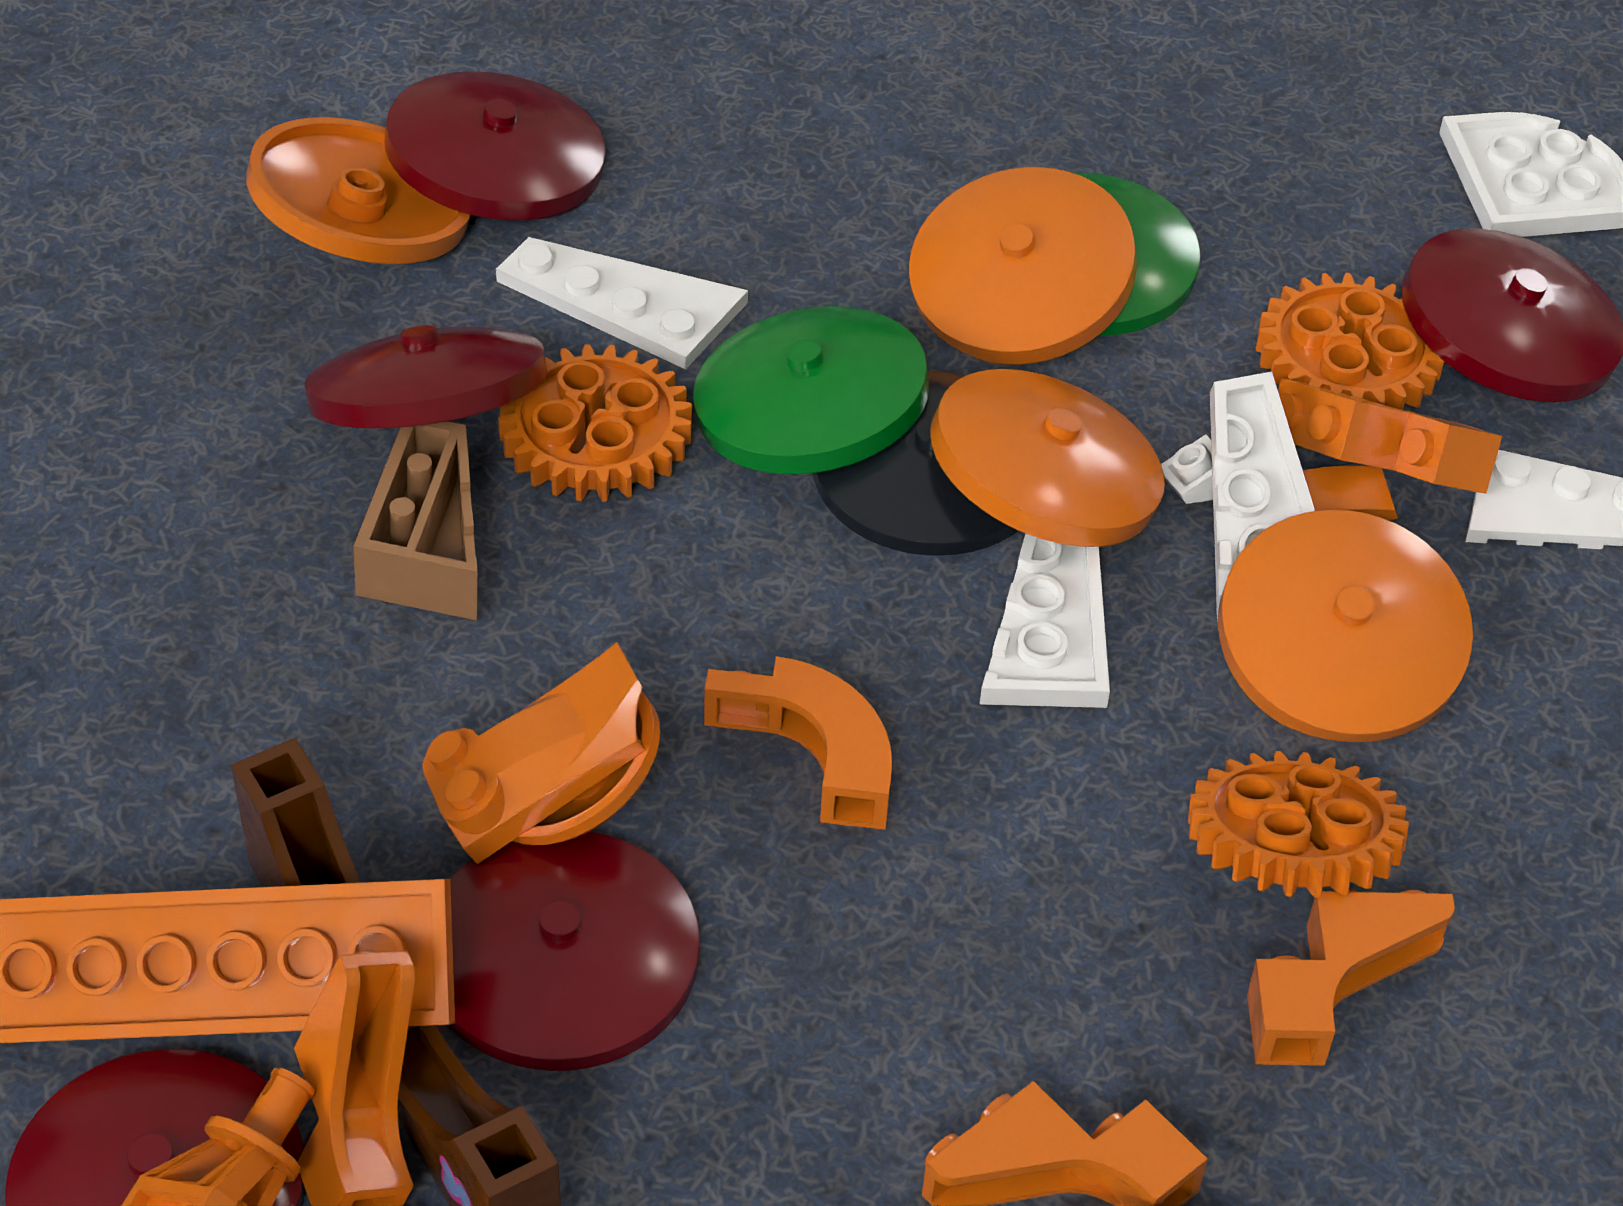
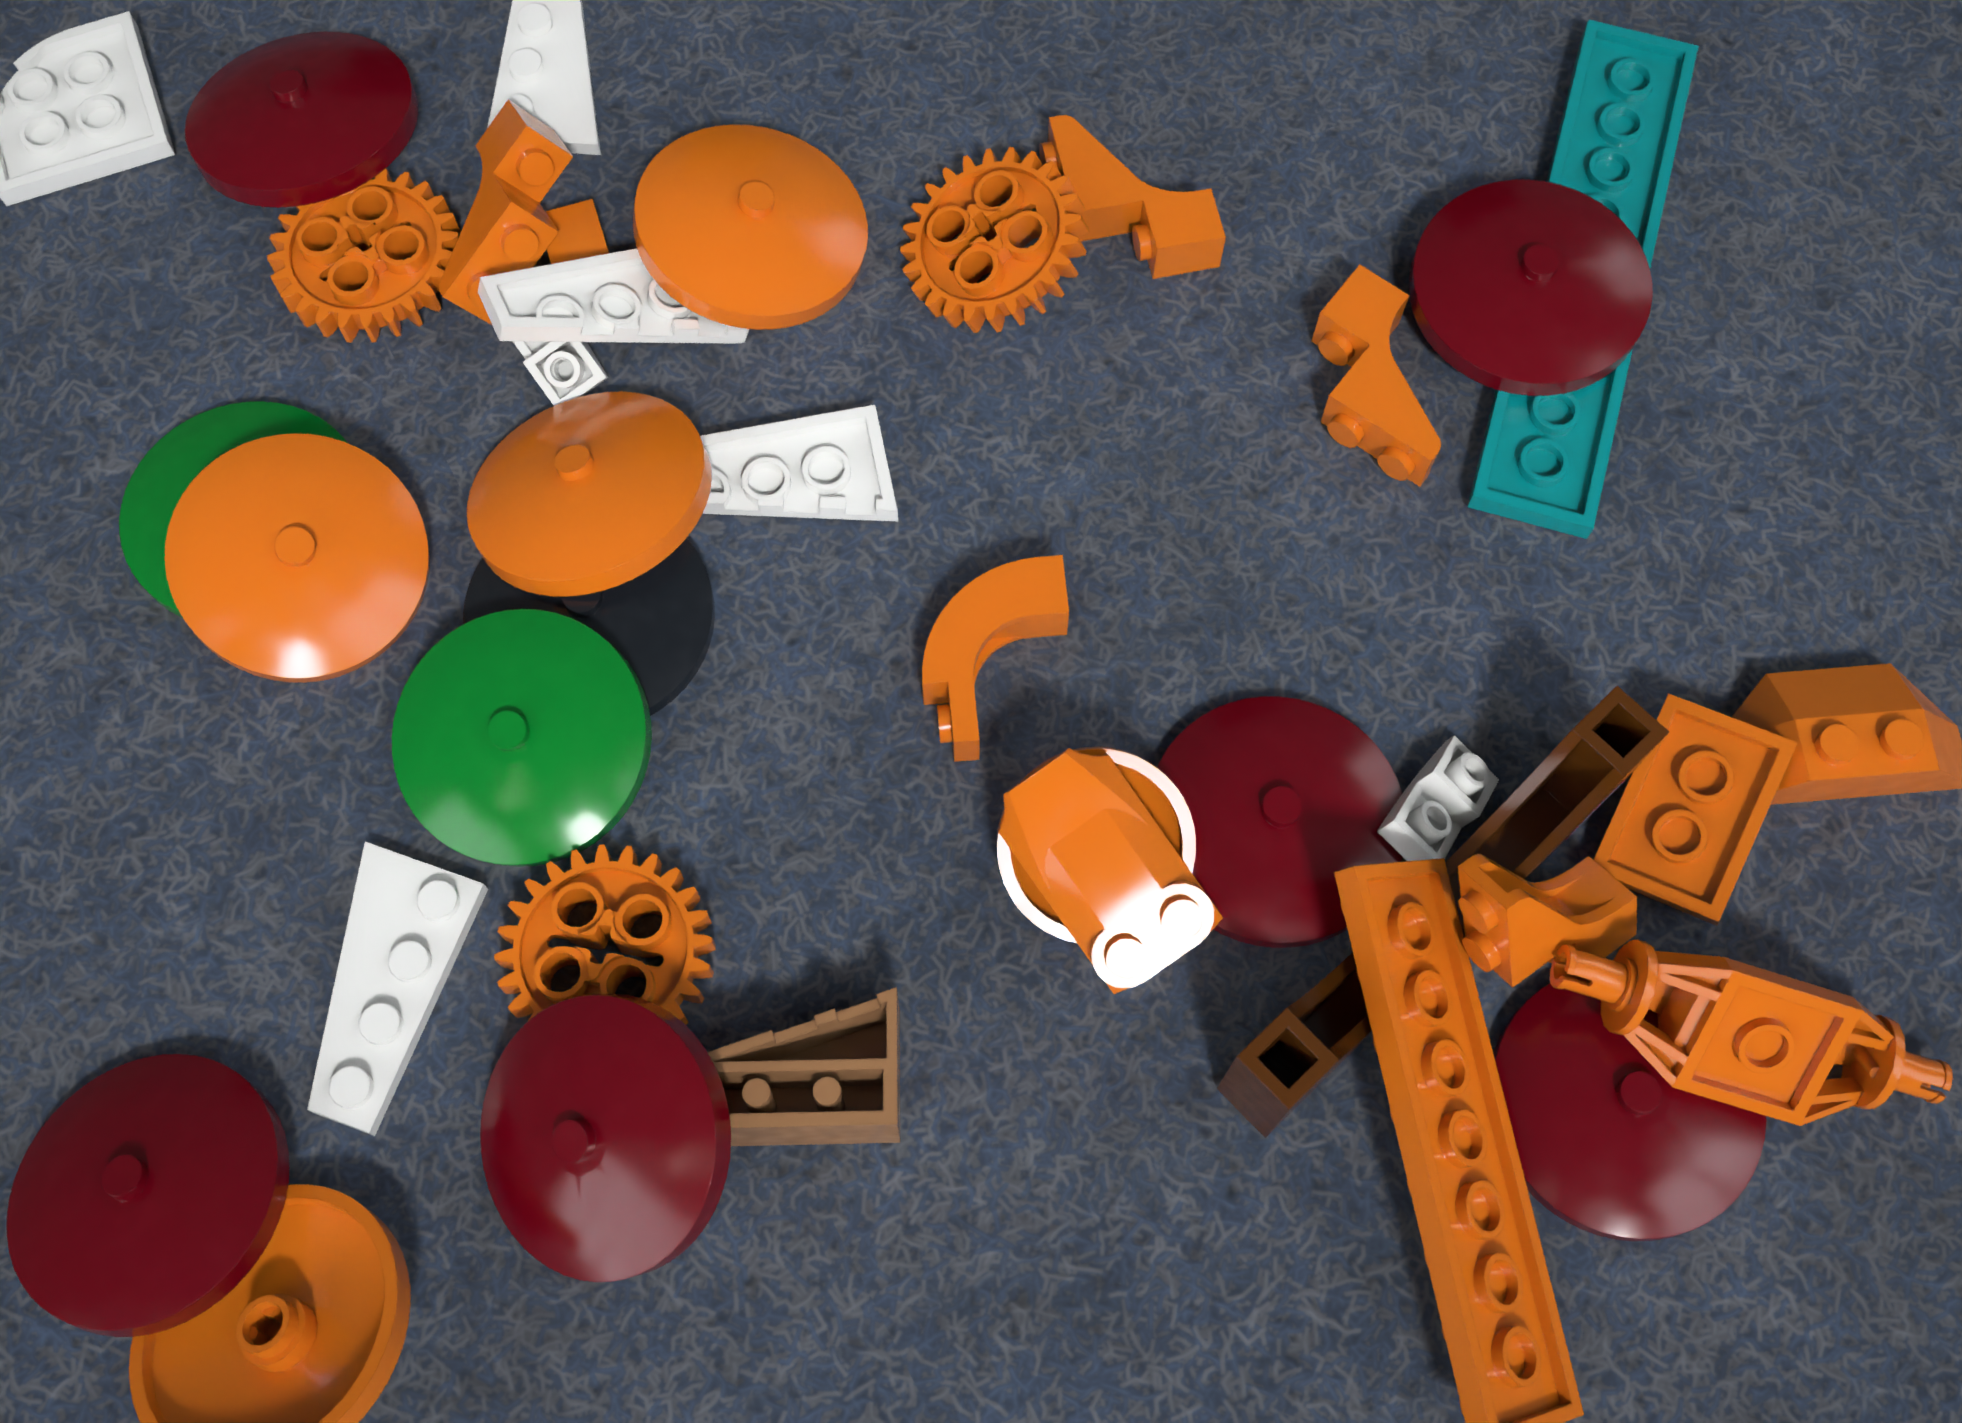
camera: 100 degrees left, 20 degrees up
(519, 1072) = (1439, 803): none -> white slope

